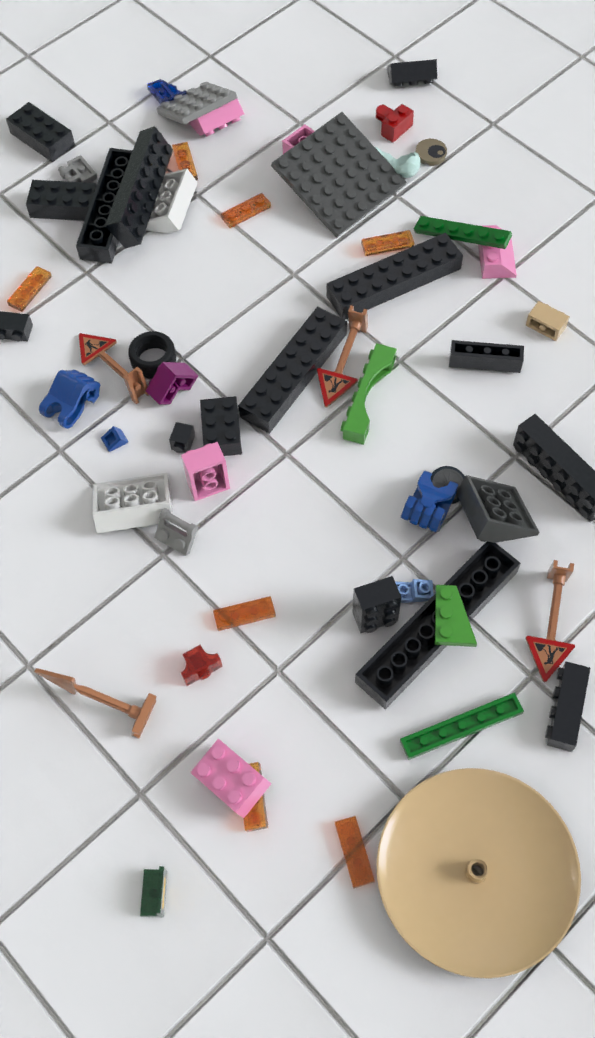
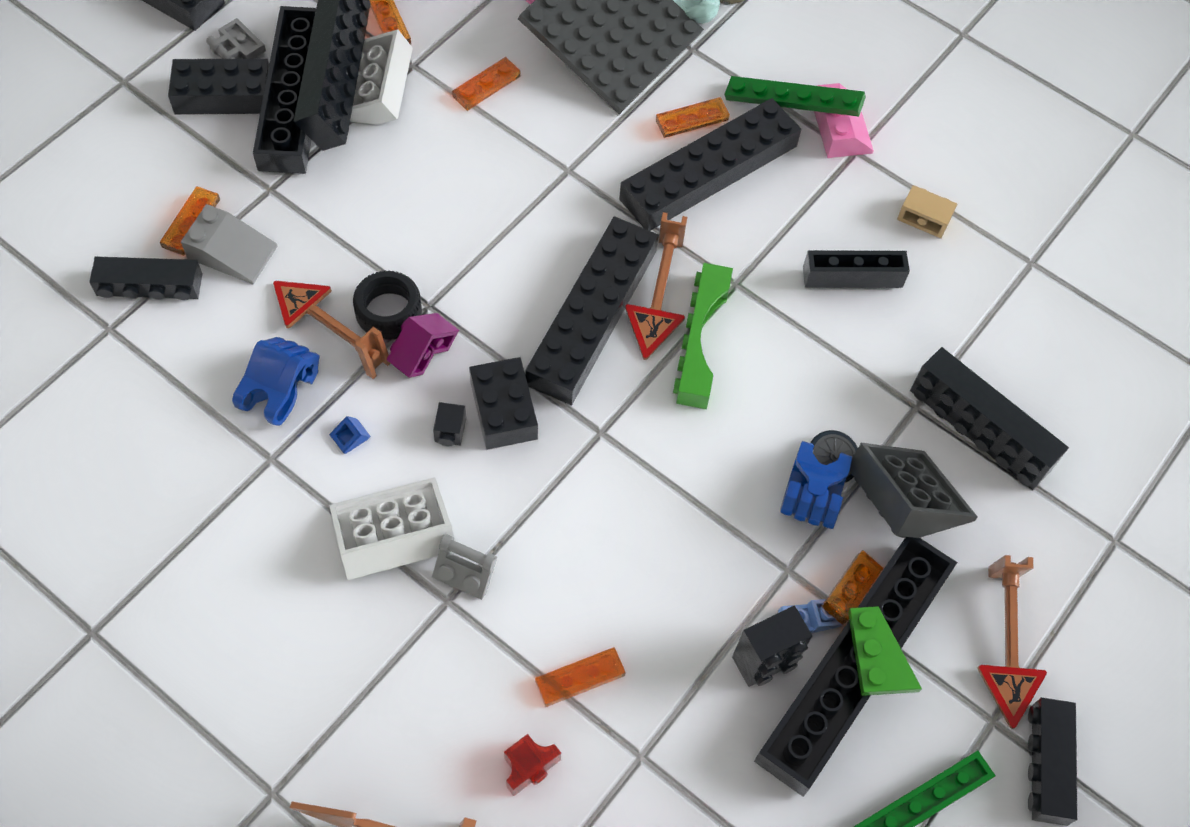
camera: 15 degrees left, 0 degrees up
(51, 306) = (227, 244): none -> light grey slope
(206, 471) = (496, 472): bright pink brick -> none
(442, 572) = (852, 586): none -> clear orange plate

